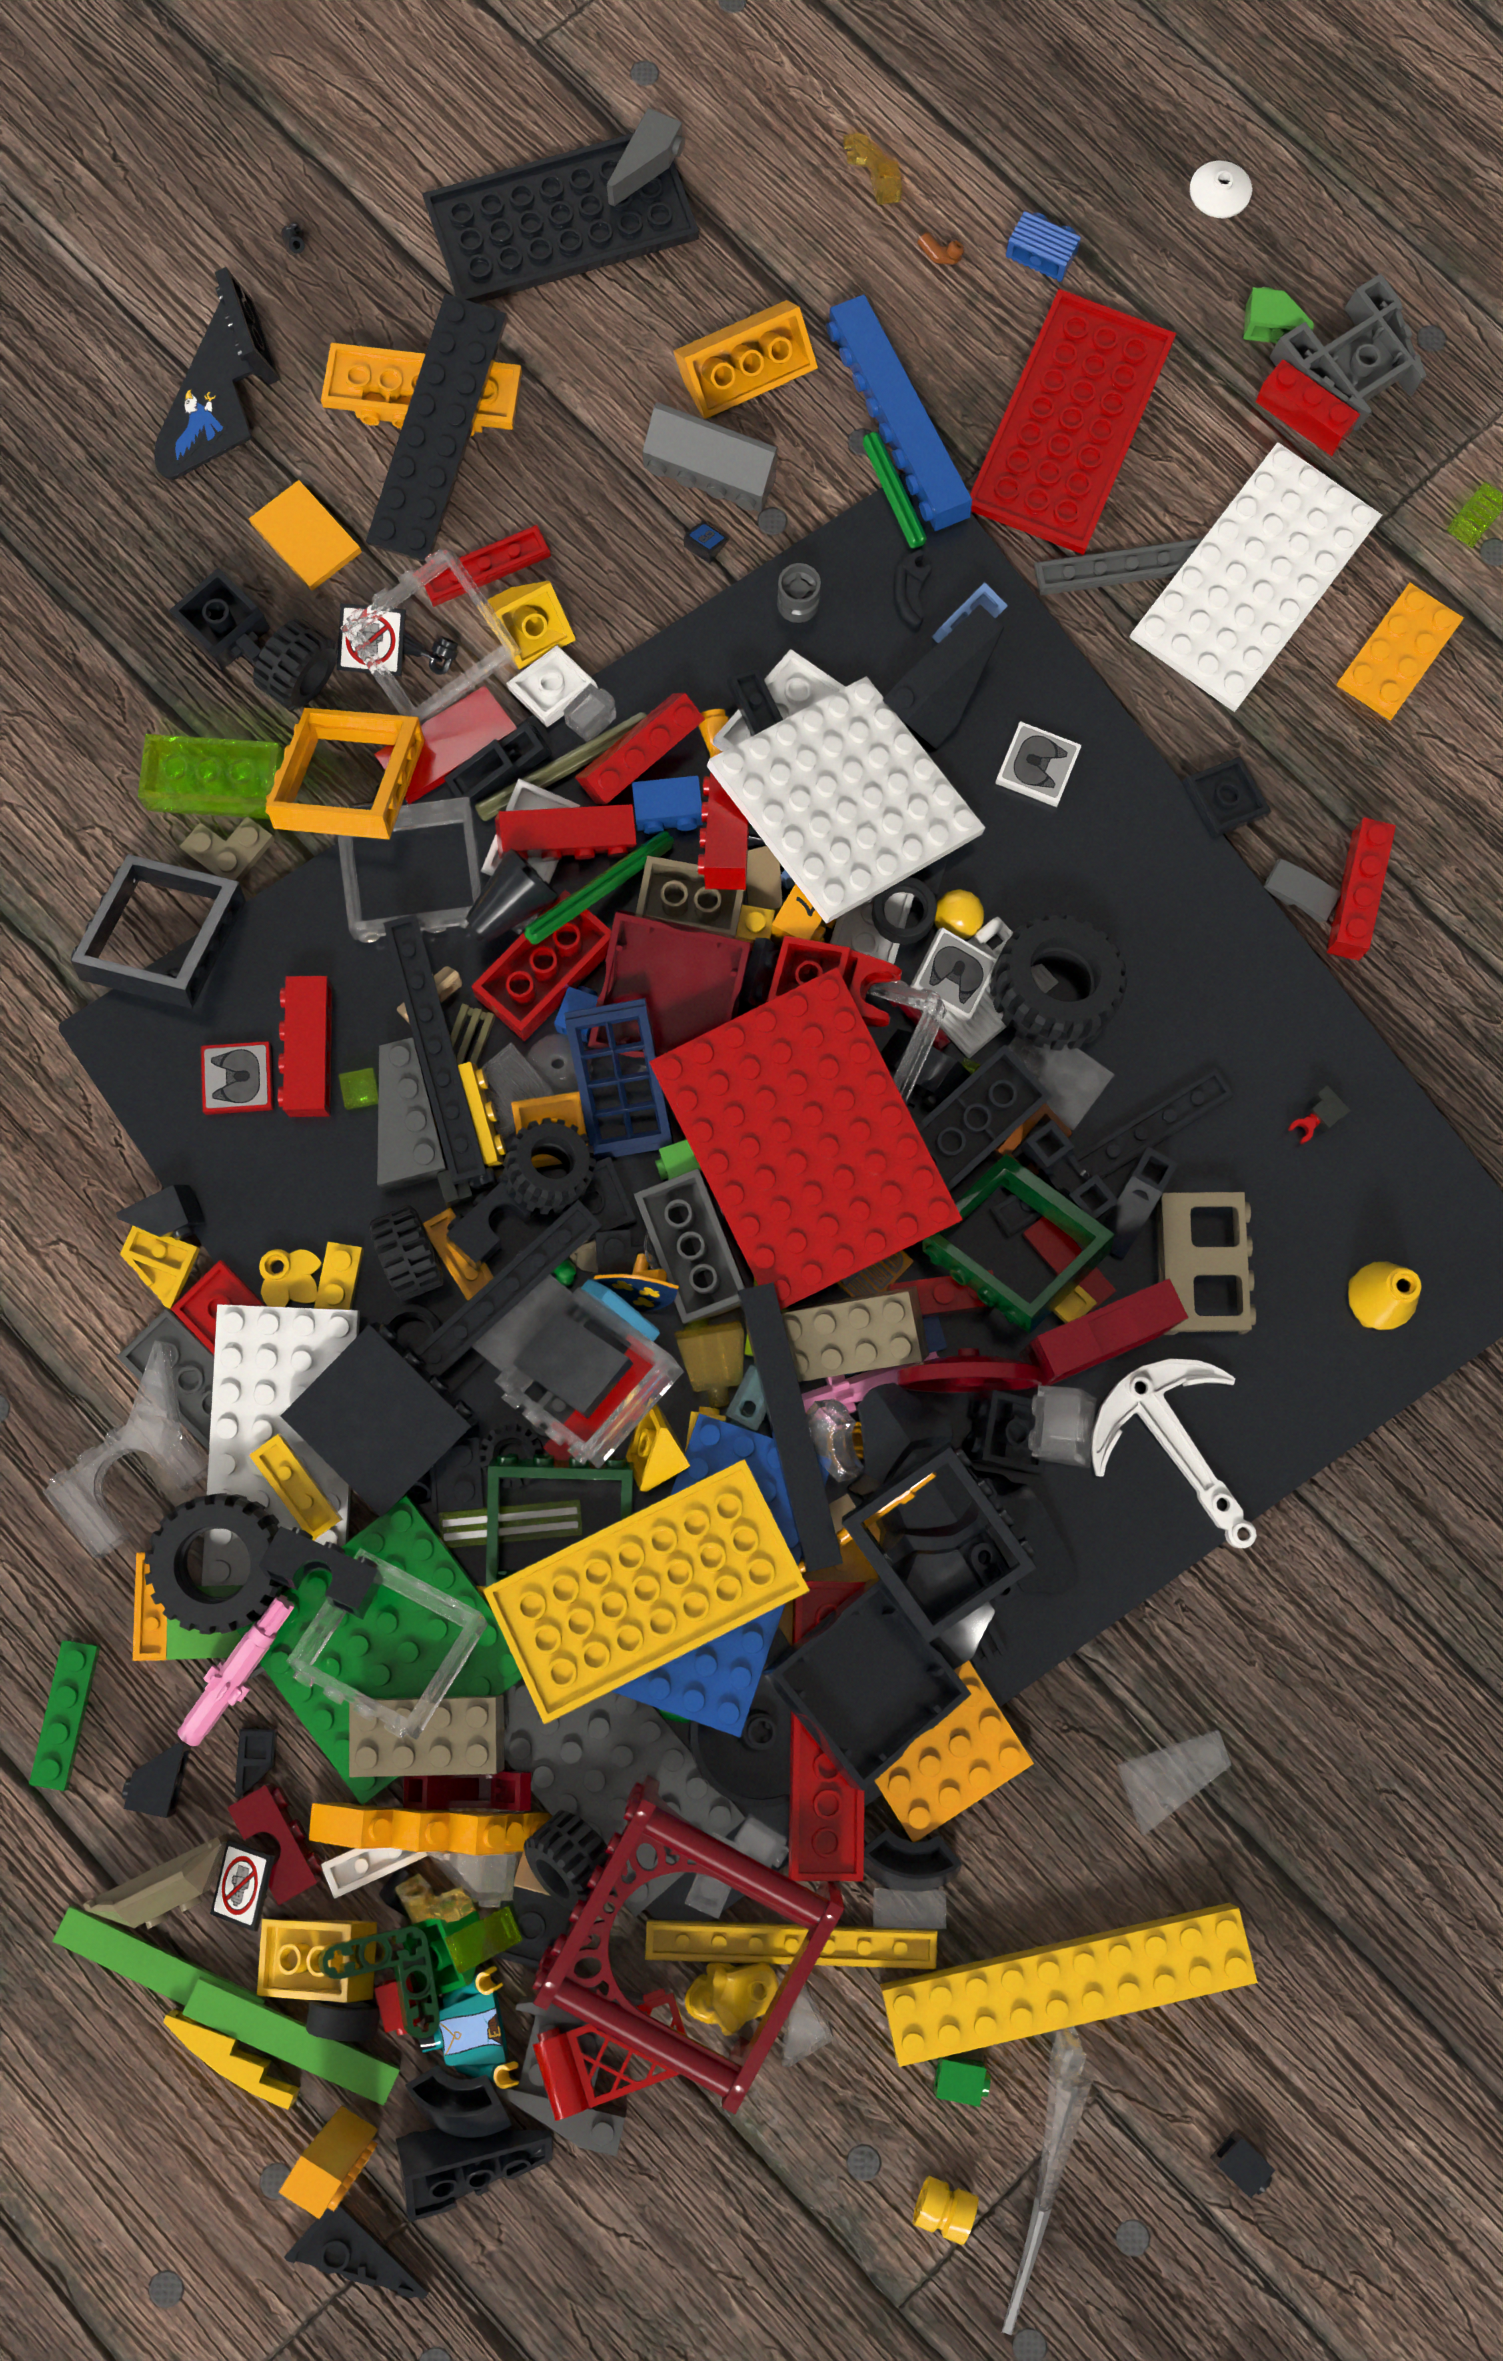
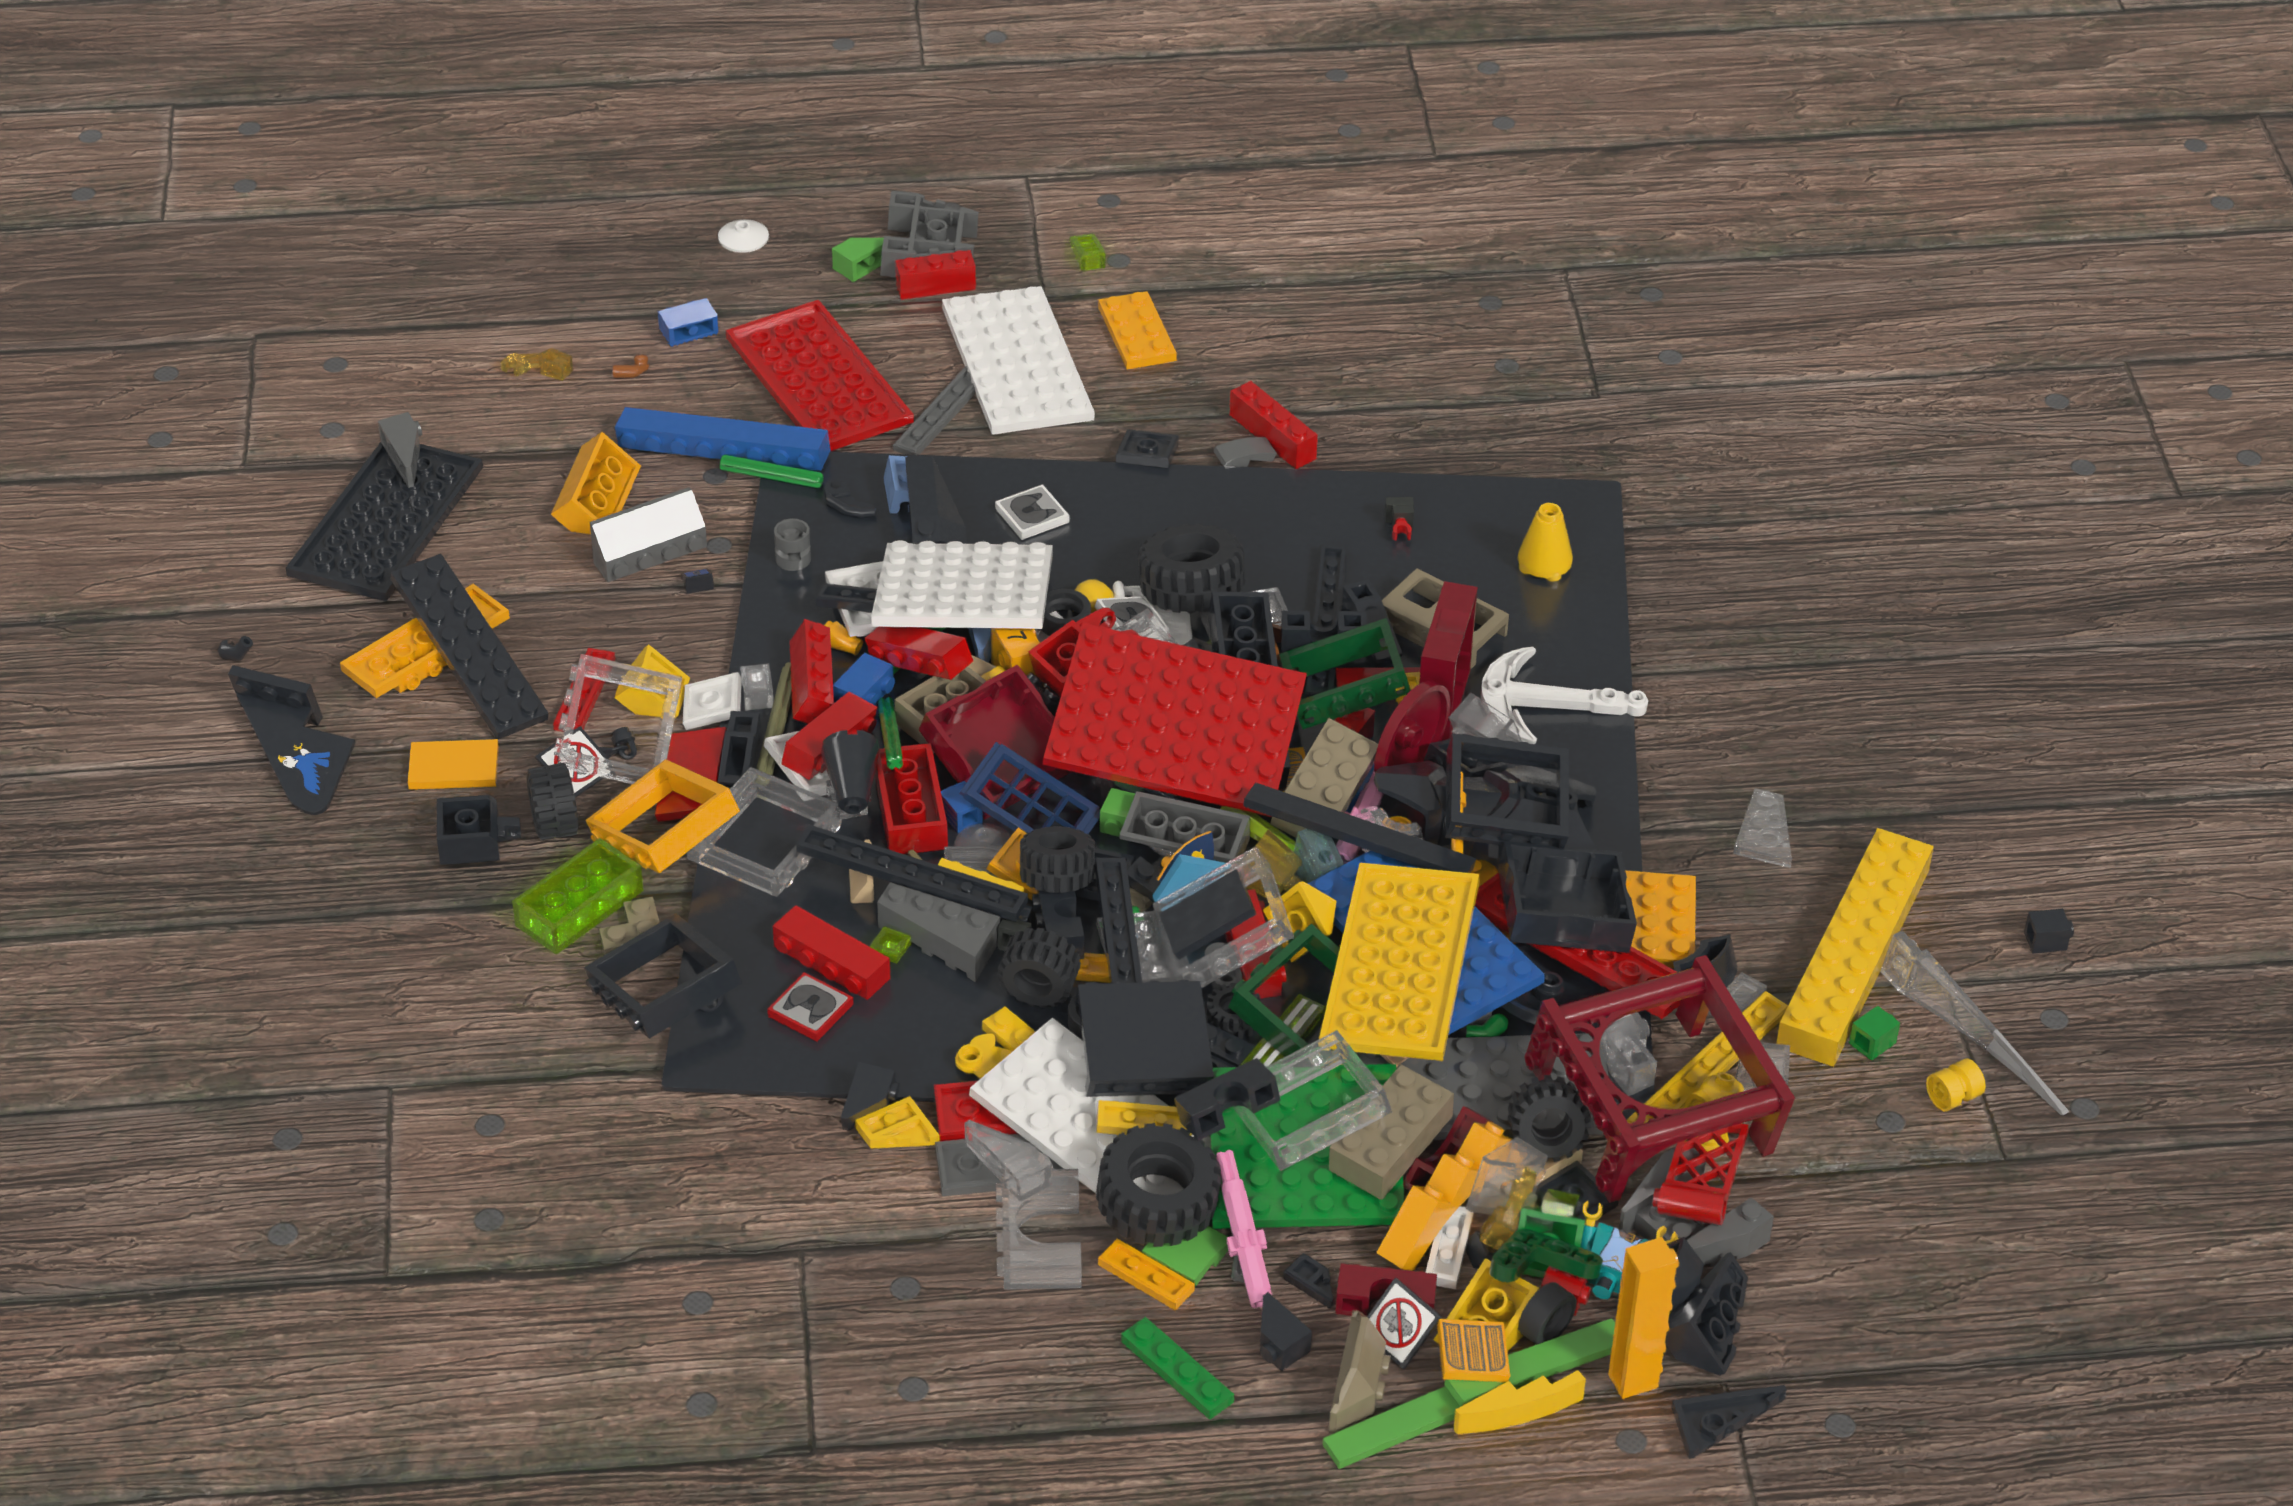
camera: 50 degrees left, 35 degrees down
(242, 1985) = (1473, 1350): none -> light orange tile

